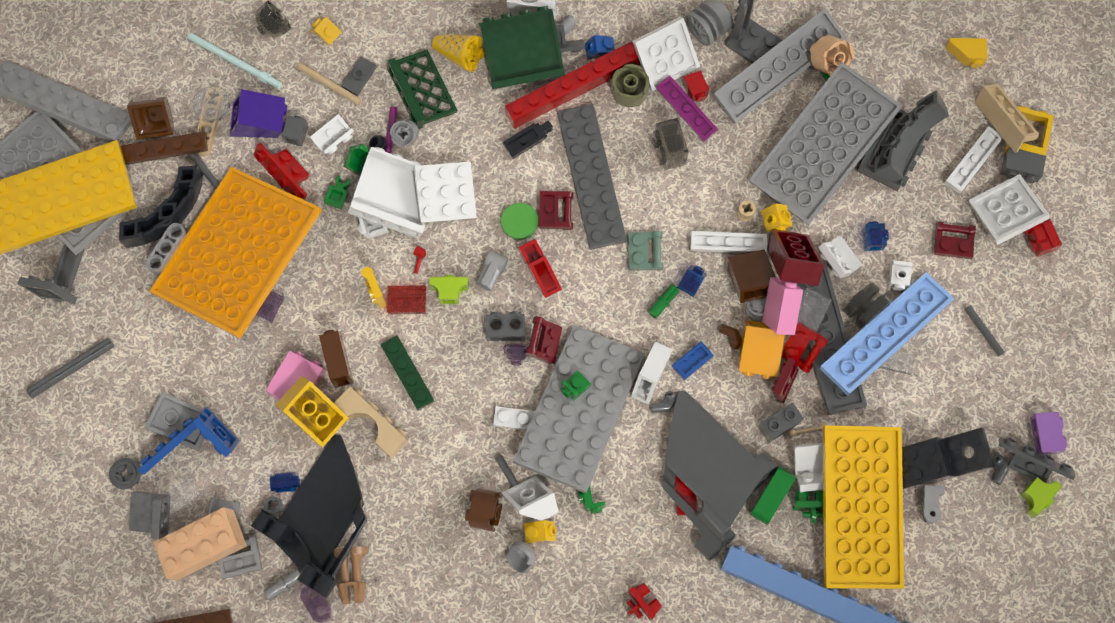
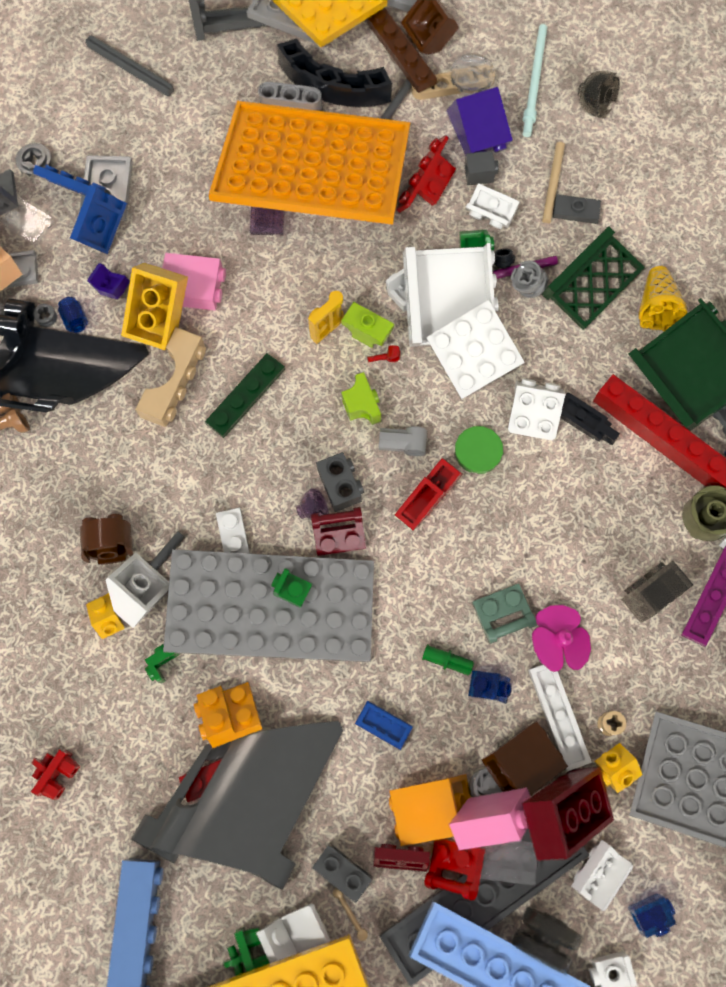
camera: 70 degrees right, 0 degrees up
(269, 445) = (107, 282): none -> dark purple bracket
(325, 30) = (615, 152): yellow bracket -> none
(336, 358) = (228, 309): reddish brown brick -> none
(337, 195) = (424, 239): green plate -> none
(392, 261) = (367, 325): none -> lime brick
(406, 299) = (330, 361): clear red plate -> none
(506, 168) = (536, 409): none -> white bracket
(521, 556) = (66, 605): light grey hair -> none
(549, 210) = (507, 478): dark red plate -> none
(591, 176) = (572, 513): dark grey plate -> none
(646, 463) = (227, 714): none -> light orange plate
(651, 372) = (348, 678): white slope -> none
(665, 405) = (315, 711): dark grey arm -> none
(676, 218) = (559, 633): none -> dark pink piece
(733, 334) = (438, 766): reddish brown arm -> none
(773, 495) = (243, 896): green beam -> none

